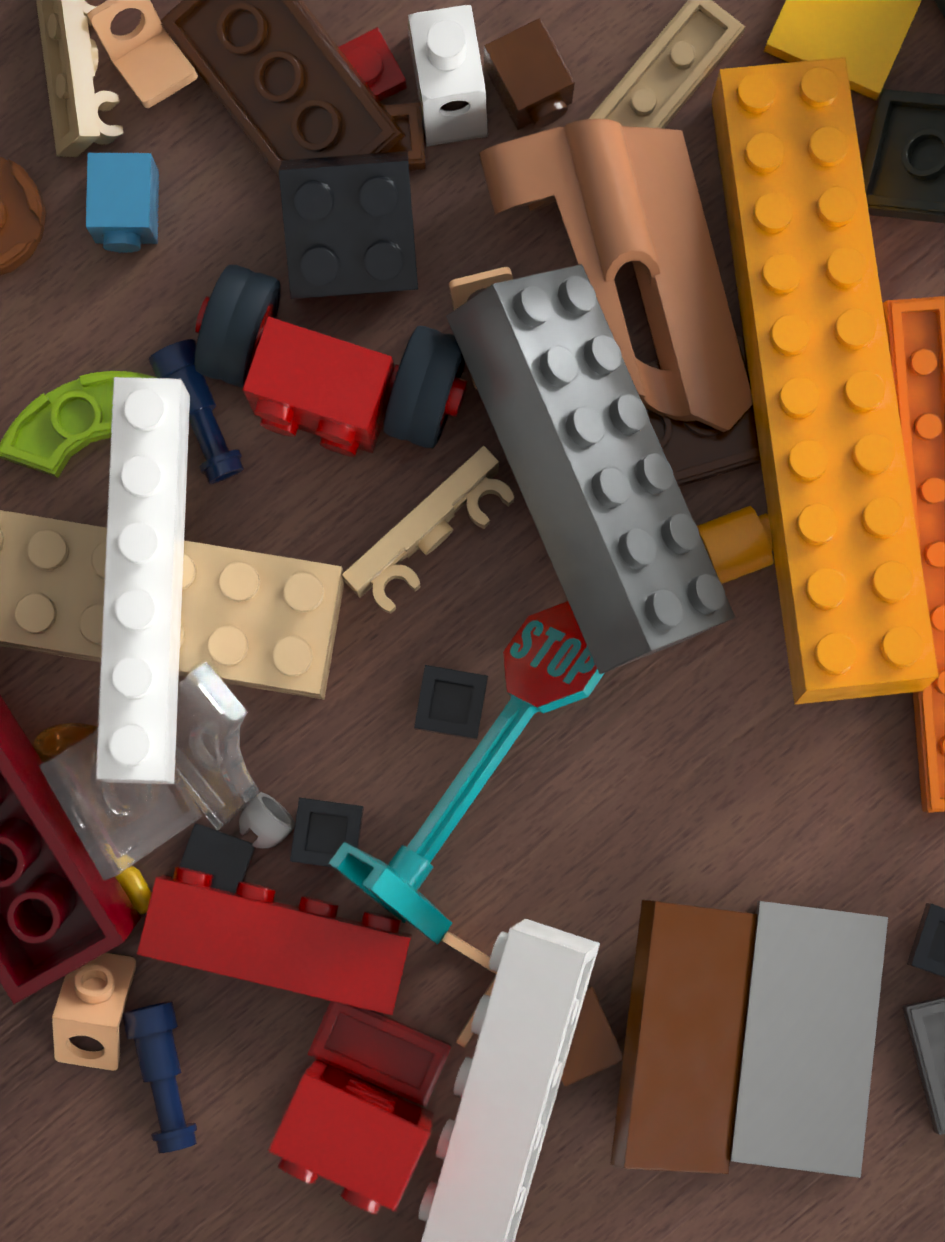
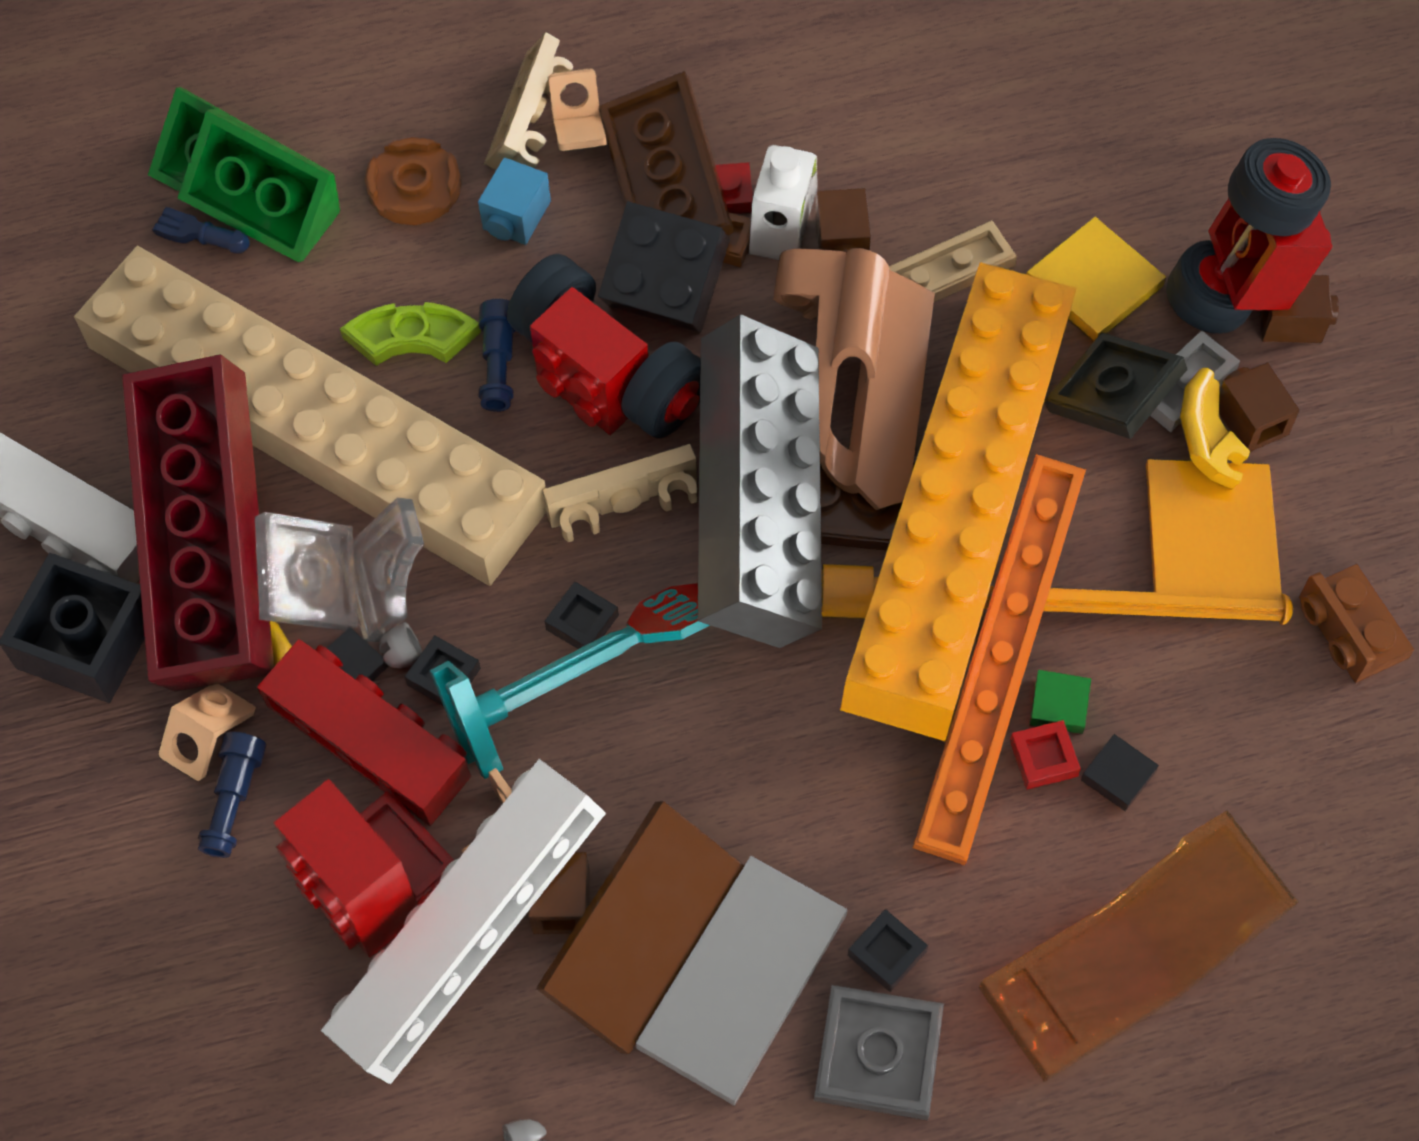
camera: 25 degrees right, 20 degrees down
(143, 581) = (391, 424): white brick -> none

